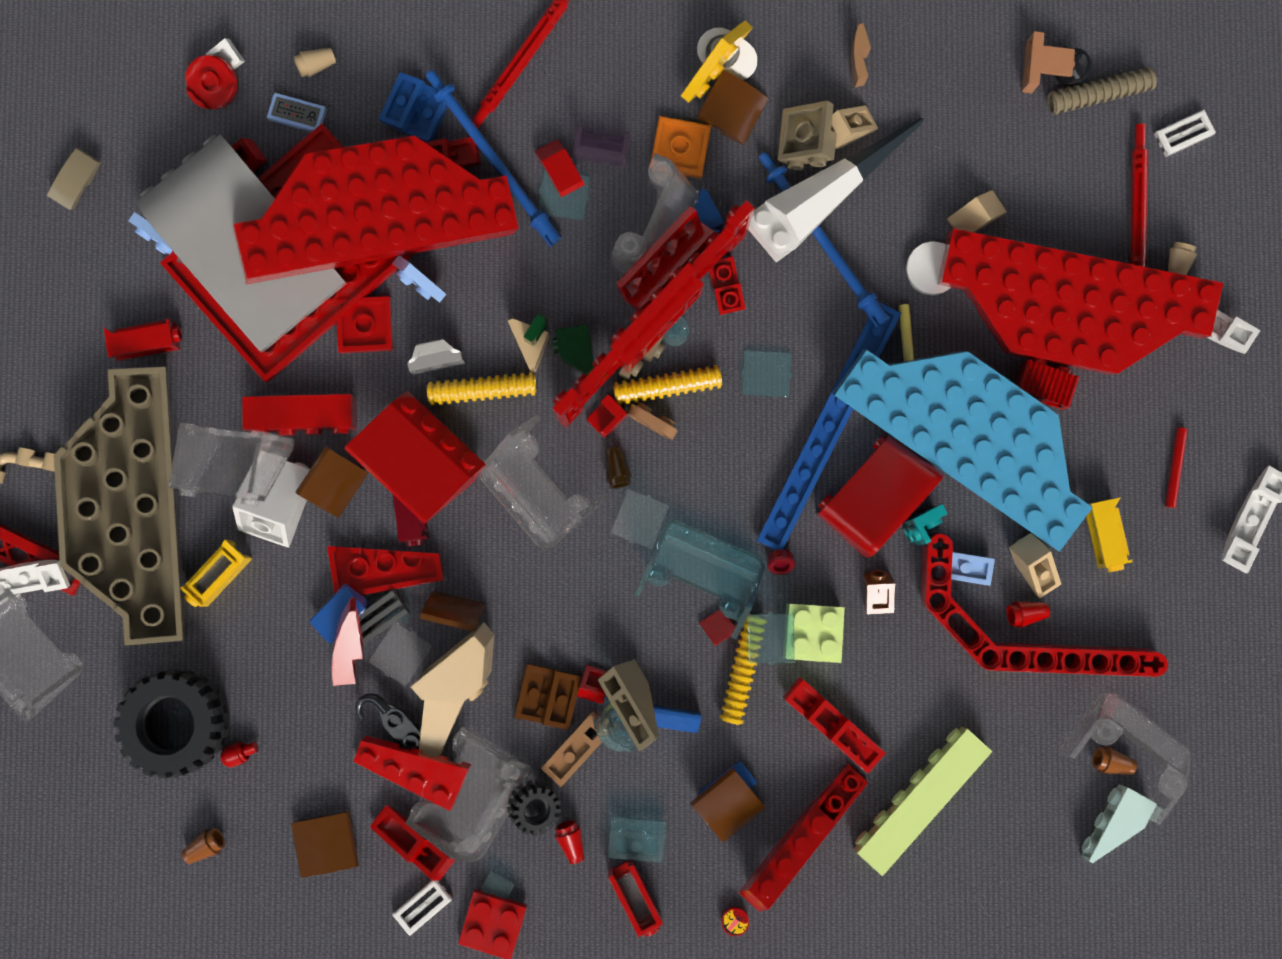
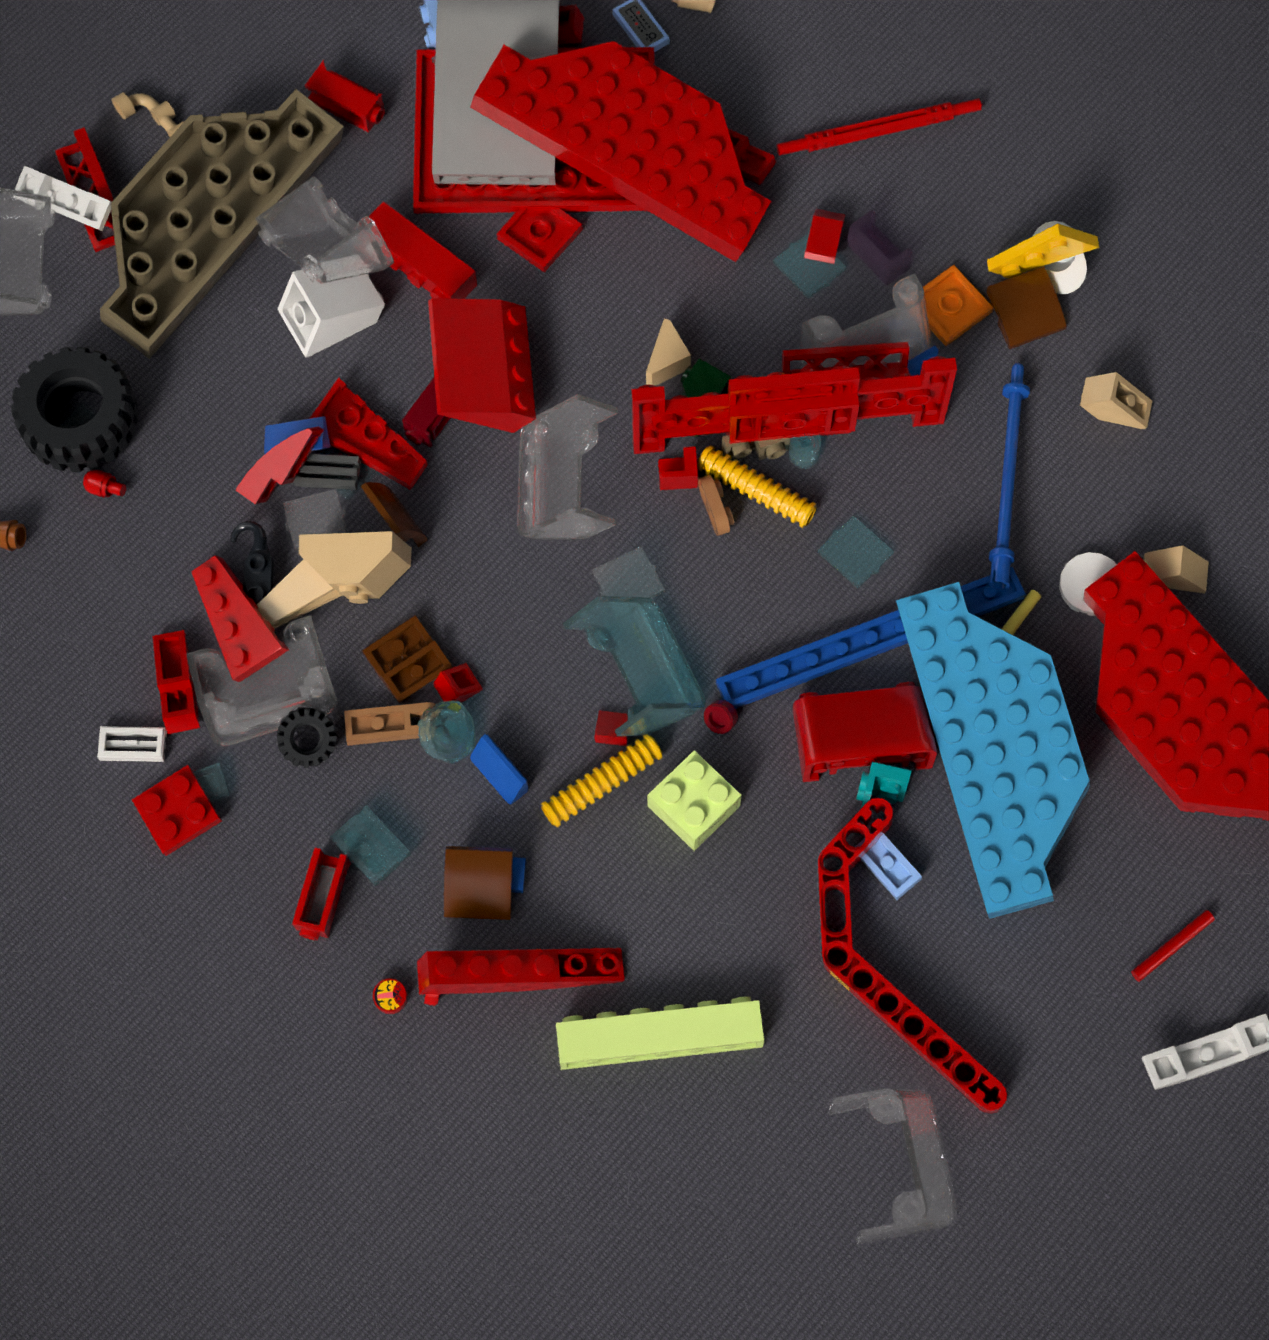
camera: 45 degrees right, 15 degrees down
(215, 575) = (225, 326): yellow window -> none
(325, 844) = (101, 619): reddish brown slope -> none
(331, 482) = (392, 328): reddish brown slope -> none
(409, 274) = (615, 219): light blue hinge -> none
(413, 108) = (746, 96): blue slope -> none
(434, 356) = (574, 300): light grey slope -> none
(481, 388) = (589, 358): yellow piece -> none
(535, 330) = (679, 340): dark green tile -> none
(537, 218) = (769, 264): blue bar -> none
(570, 840) = (310, 797): red cone -> none
(617, 470) = (646, 520): dark brown cone -> none
(632, 701) = (478, 711): dark tan slope -> none
(726, 286) = (886, 448): red slope -> none
(771, 638) = (650, 765): clear light blue piece -> none
(796, 212) = (1005, 431): white plate -> none
(807, 136) = (1070, 377): dark tan plate -> none
(833, 725) = (639, 900): red slope -> none
(859, 50) = (1183, 349): medium nougat slope -> none
(879, 592) = (786, 818): bracket -> none
(1026, 613) = (910, 952): red cone -> none
(1035, 564) = (956, 917): tan slope -> none
(1046, 383) = (1110, 765): red brick -> none
(1108, 535) = (1051, 945): yellow window -> none
(1113, 762) = (873, 1159): dark orange cone -> none
(1122, 819) = (831, 1218): light aqua slope -> none

